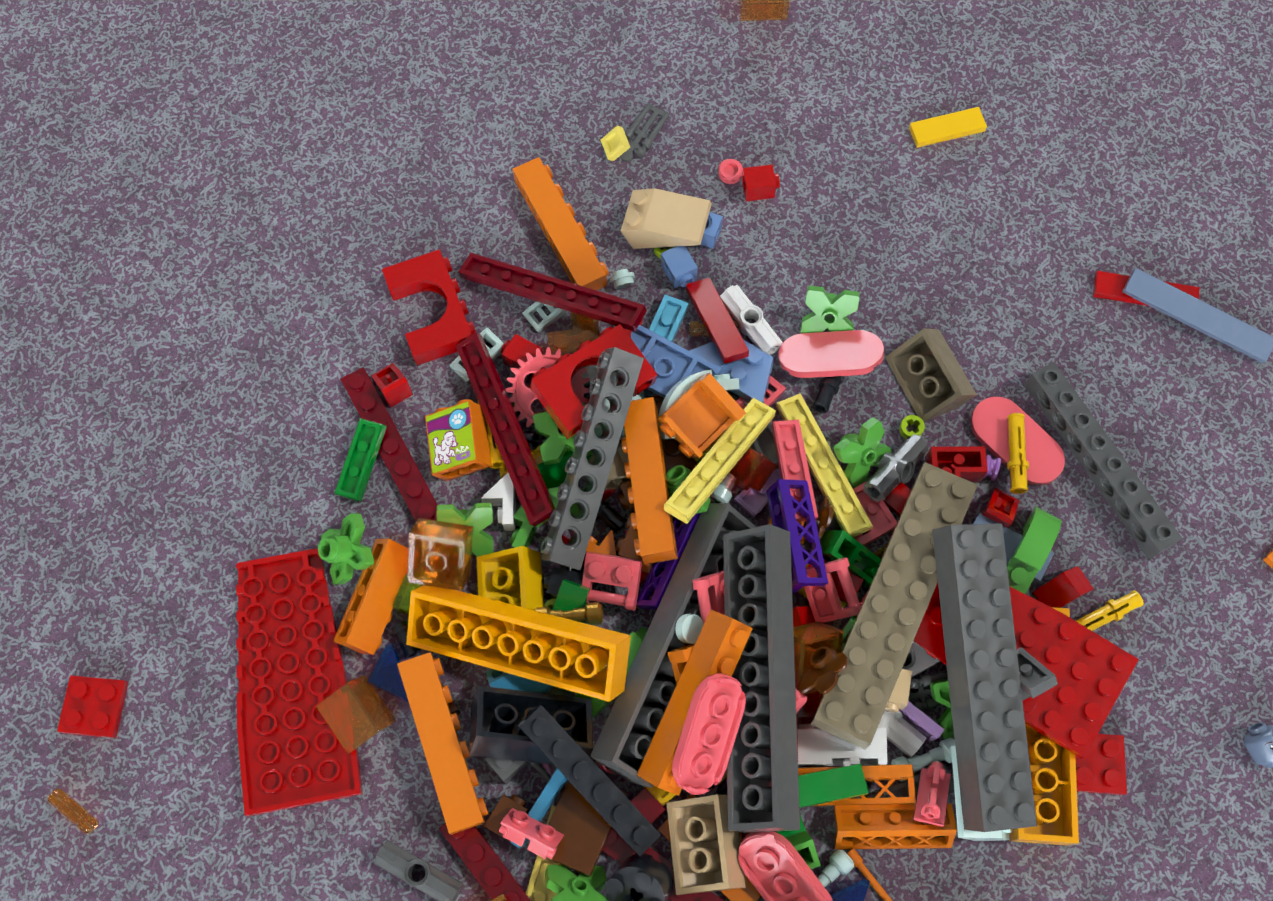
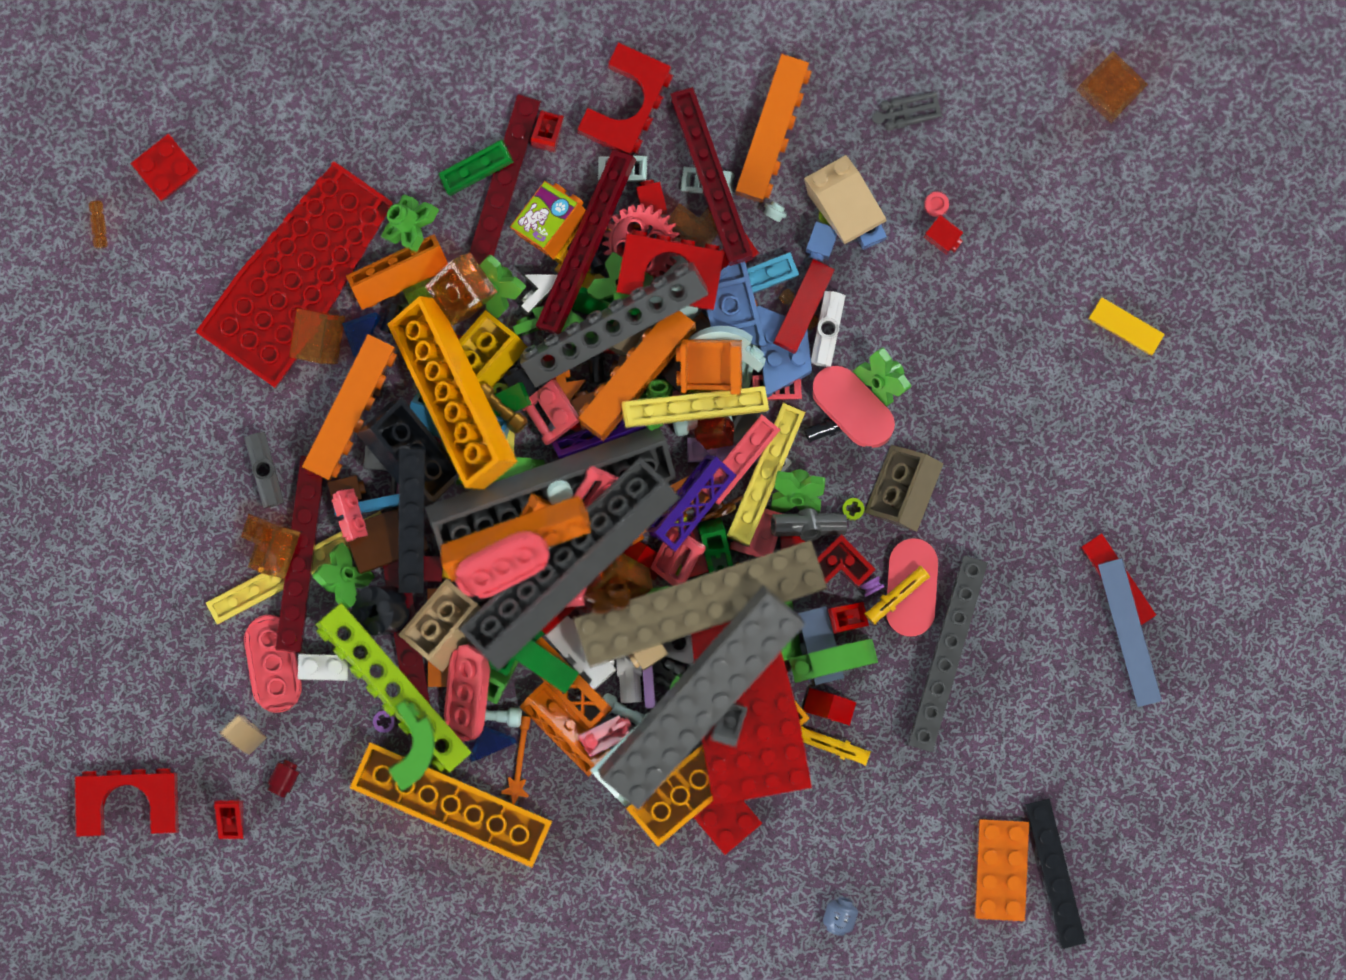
camera: 40 degrees right, 15 degrees up
(615, 143) = (877, 102): light yellow tile -> none

